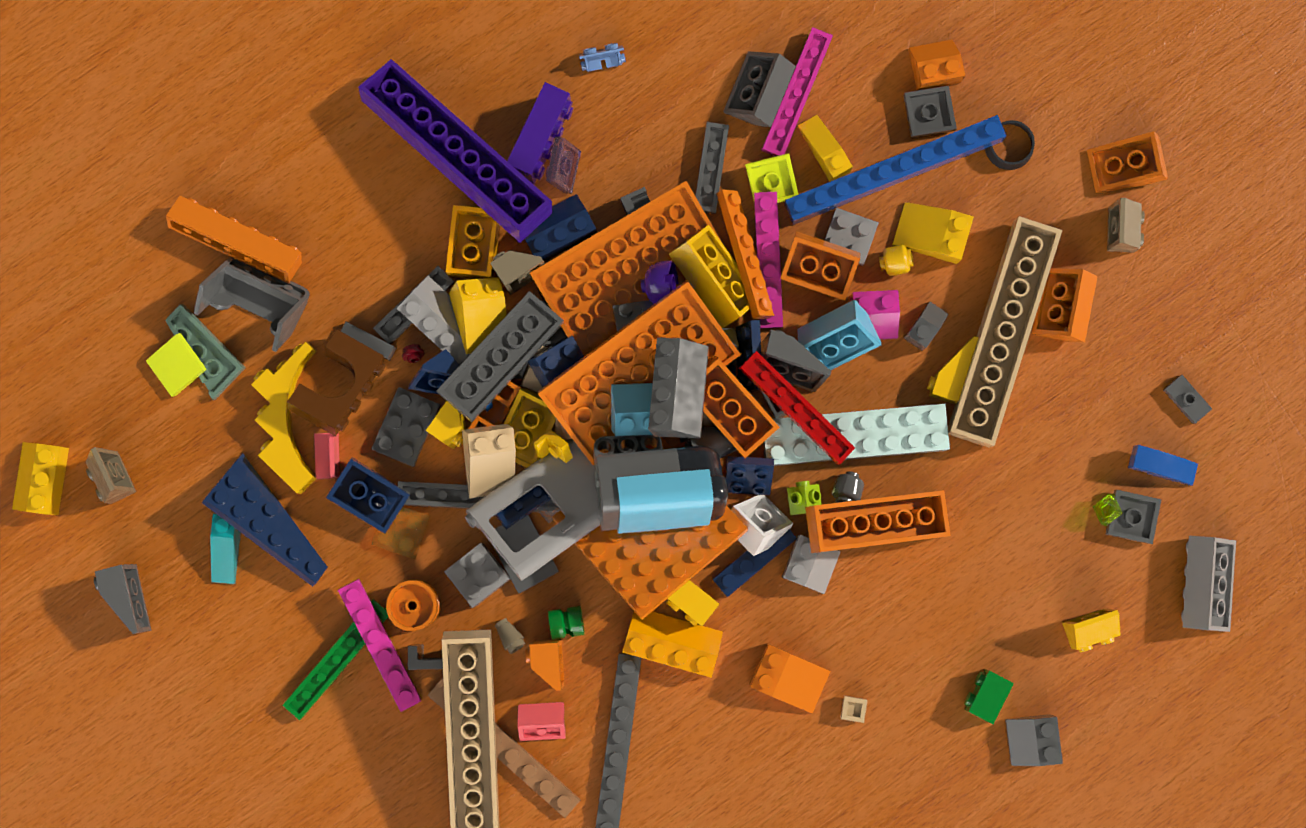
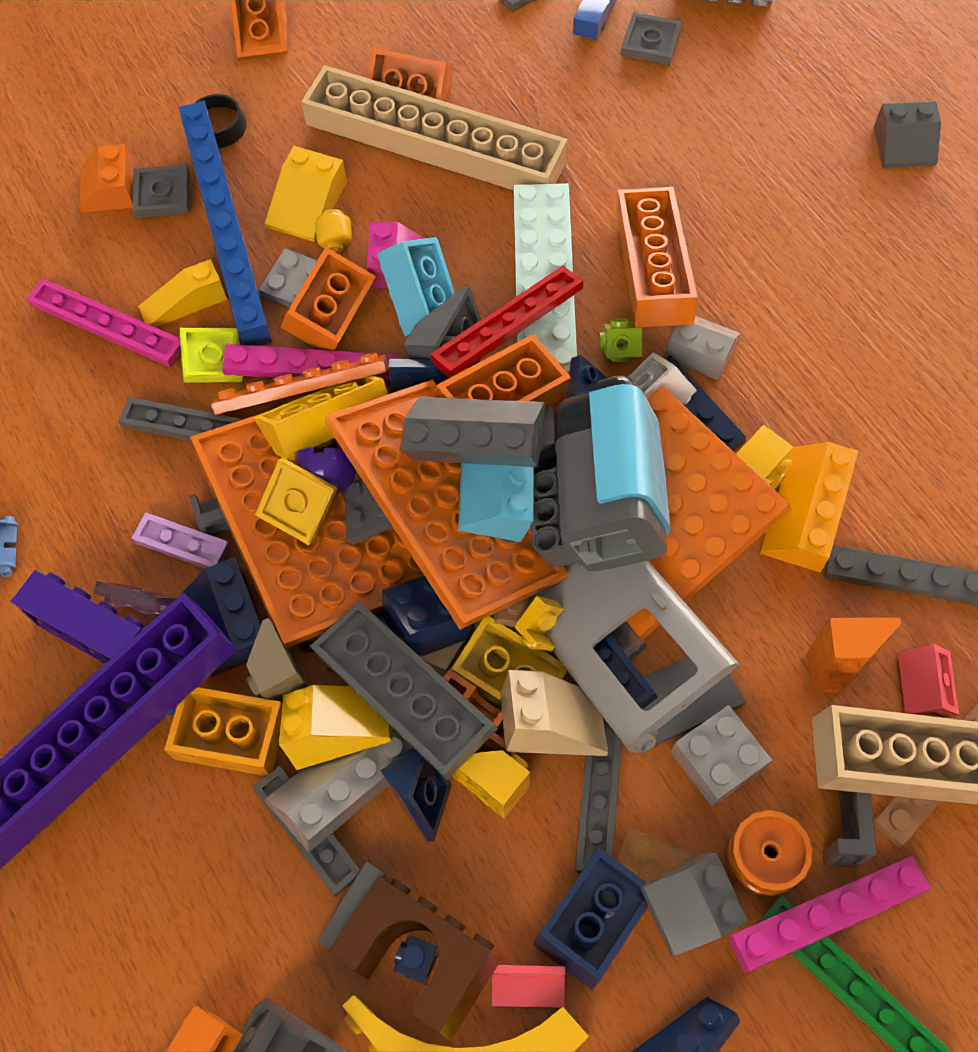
camera: 85 degrees left, 20 degrees down
(336, 383) = (416, 959): none -> dark blue brick
(378, 556) = (693, 903): none -> dark grey slope
(405, 427) = (491, 856): dark grey plate -> none
(412, 353) = (380, 836): dark red plate -> none
(509, 636) = (801, 720): dark tan cone -> none
(566, 622) = (787, 636): green wheel -> none
(613, 186) = (180, 541): none -> lavender plate
(633, 266) = (296, 501): none -> yellow tile
(760, 88) = (88, 361): dark grey slope -> none
(789, 678) = (847, 378): orange slope -> none
(847, 487) = (609, 296): dark grey head -> none
(853, 709) = (884, 307): tan plate -> none
(926, 326) = (420, 209): dark grey slope -> none
(951, 377) = (478, 185): yellow slope -> none
(988, 696) = (859, 173): green brick -> none
(1092, 628) = (776, 74): yellow slope -> none
(1107, 509) = (643, 55): clear neon green tile -> none
(1125, 226) = (328, 24): dark tan slope -> none

